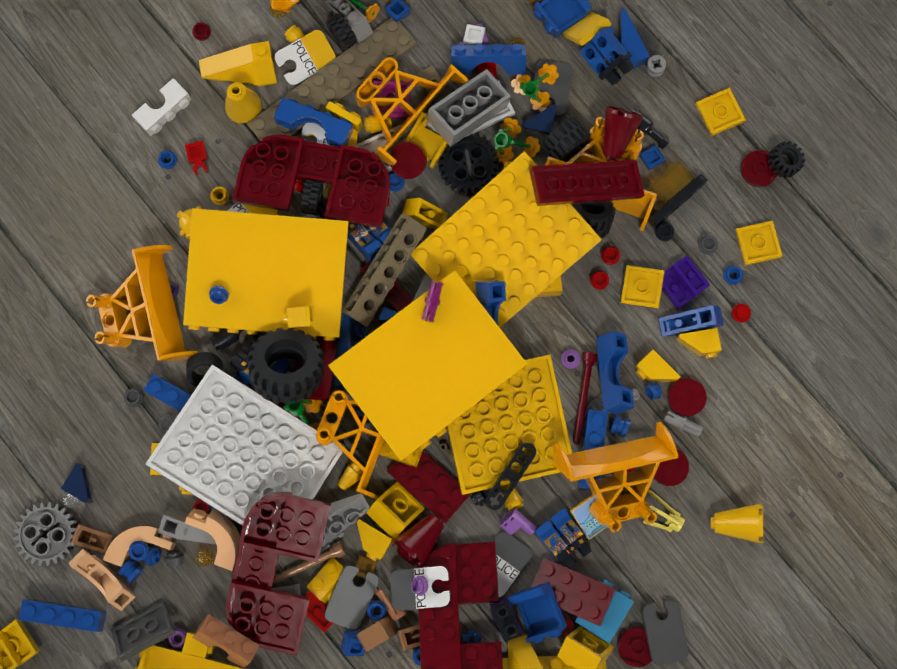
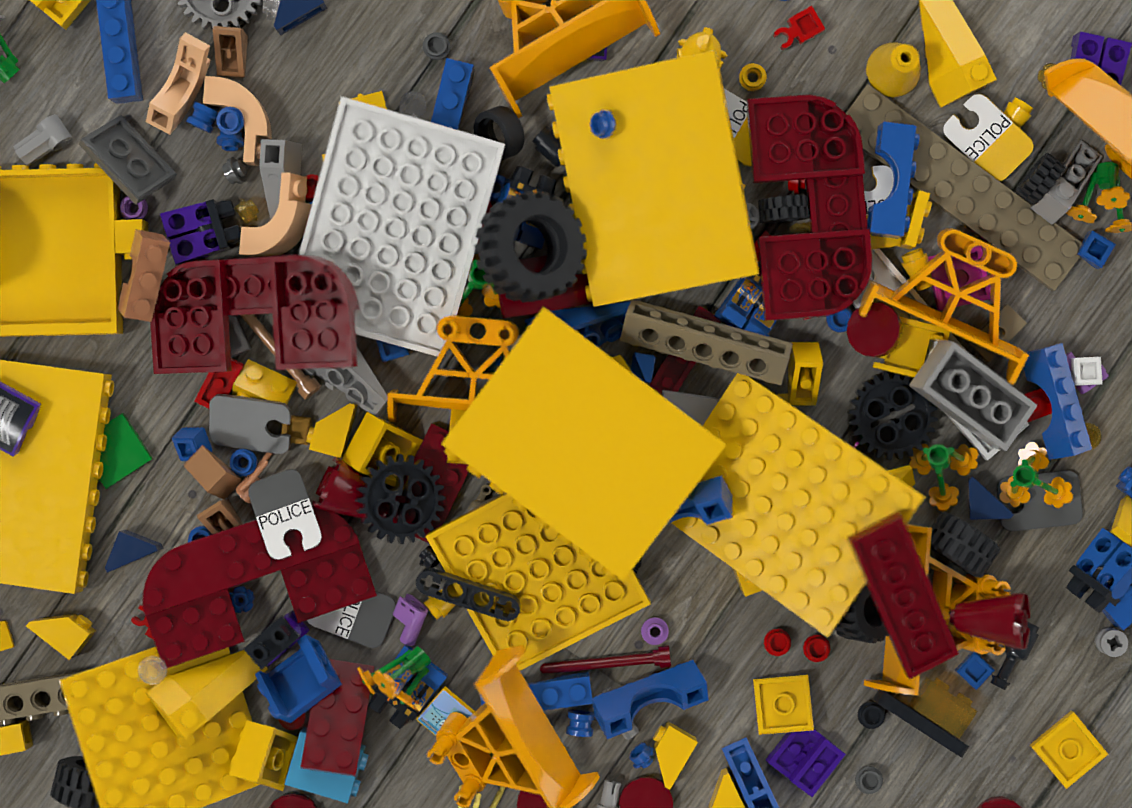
camera: 70 degrees right, 10 degrees up
(207, 594) = (209, 229): none -> dark purple hips
(298, 316) = (602, 245): yellow slope -> none
(329, 485) = (390, 351): none -> blue tile
(350, 477) = (409, 375): yellow cone -> none
(419, 585) = (286, 513): medium lavender plate -> none
(432, 301) = (672, 426): magenta pin -> none
(441, 490) = (376, 493): none -> black gear
(546, 527) = (413, 661): none -> plant

